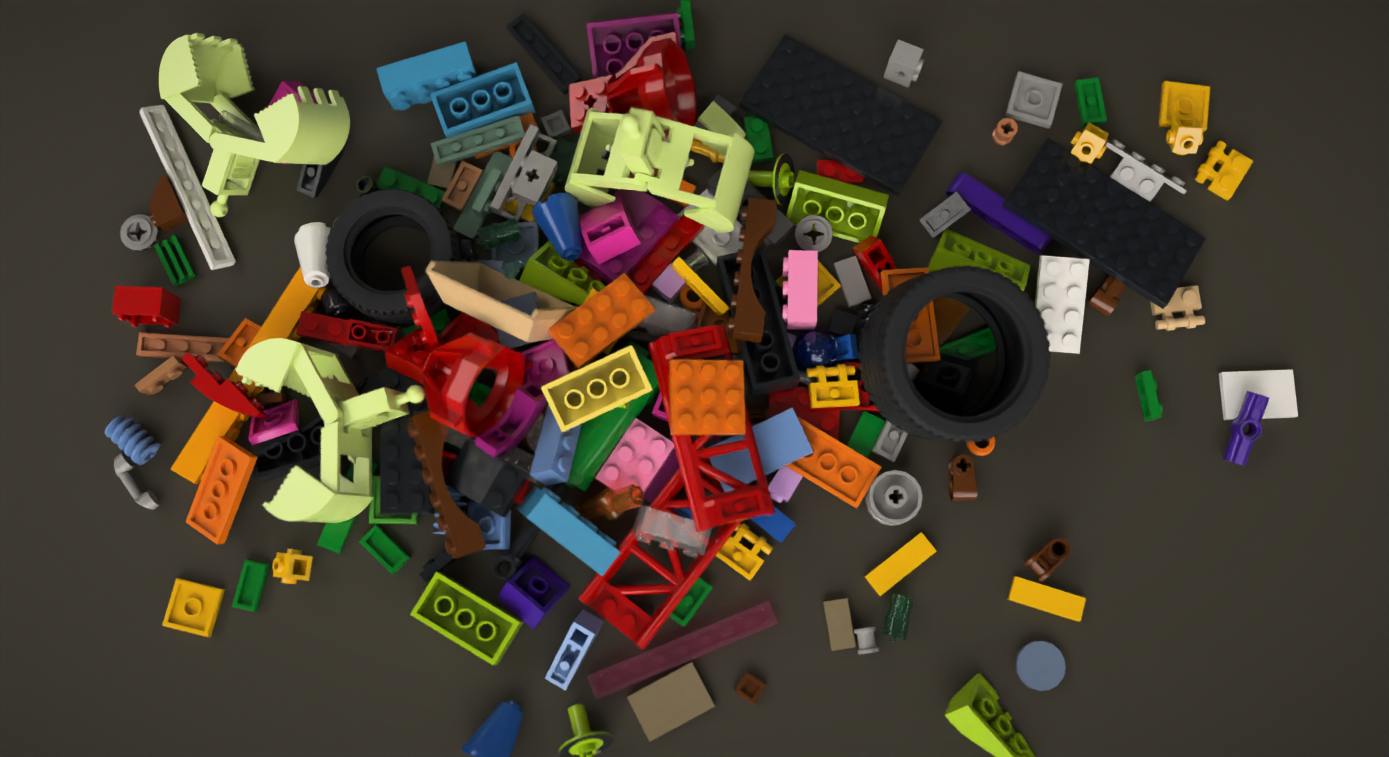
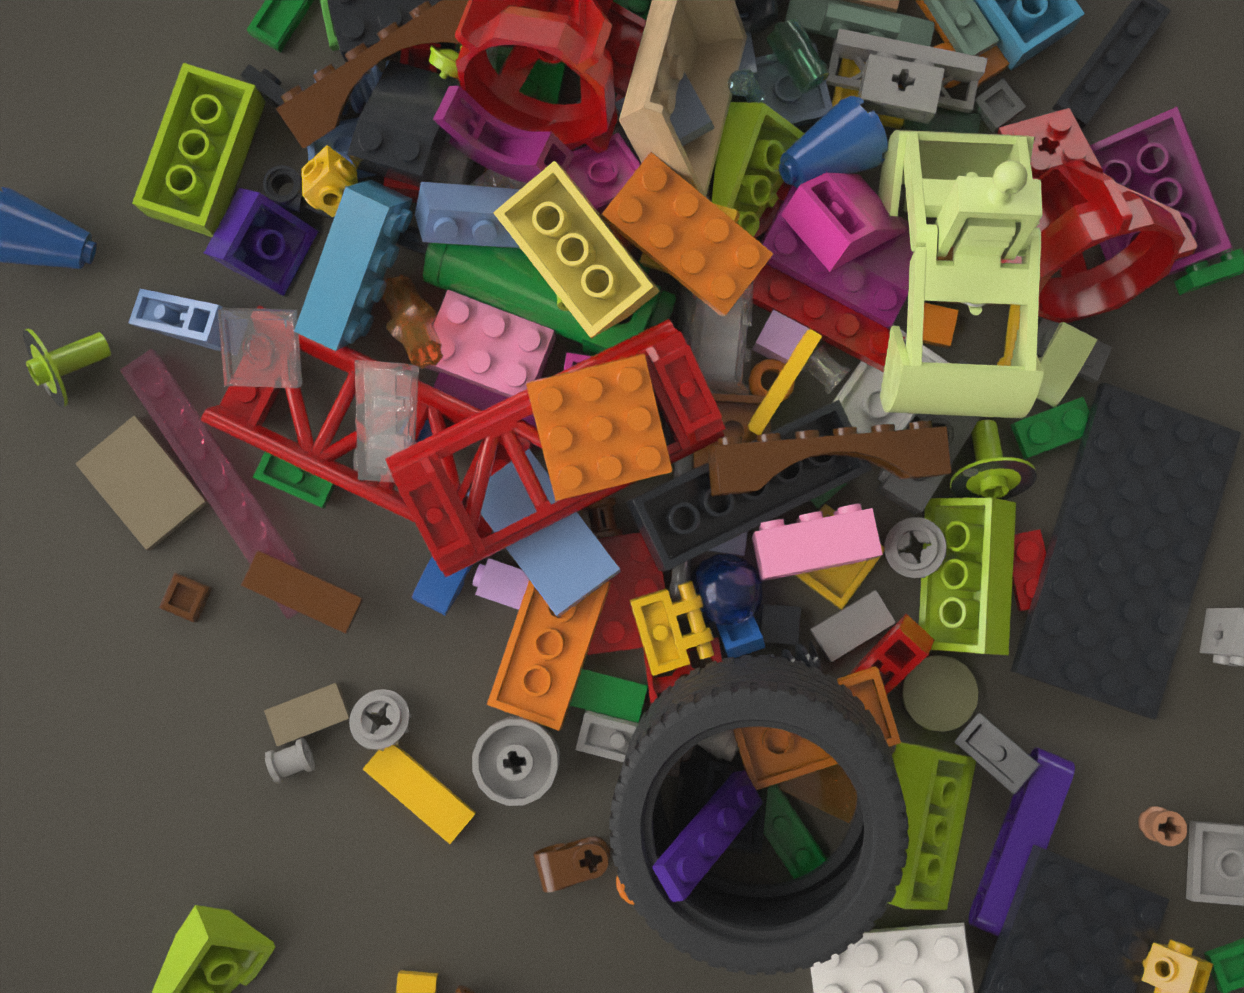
camera: 70 degrees right, 5 degrees up
(455, 443) = (445, 61): none -> lime hat
(512, 534) = (326, 179): none -> yellow brick
(605, 602) = (260, 347): none -> clear tile
(741, 558) = (376, 541): yellow plate -> none
(763, 609) = (302, 591): none -> reddish brown tile
(842, 580) = (375, 704): none -> light grey gear
(897, 618) = (334, 803): clear green piece -> none
(903, 239) = (939, 693): none -> olive tile
(962, 387) = (707, 836): none -> dark purple plate

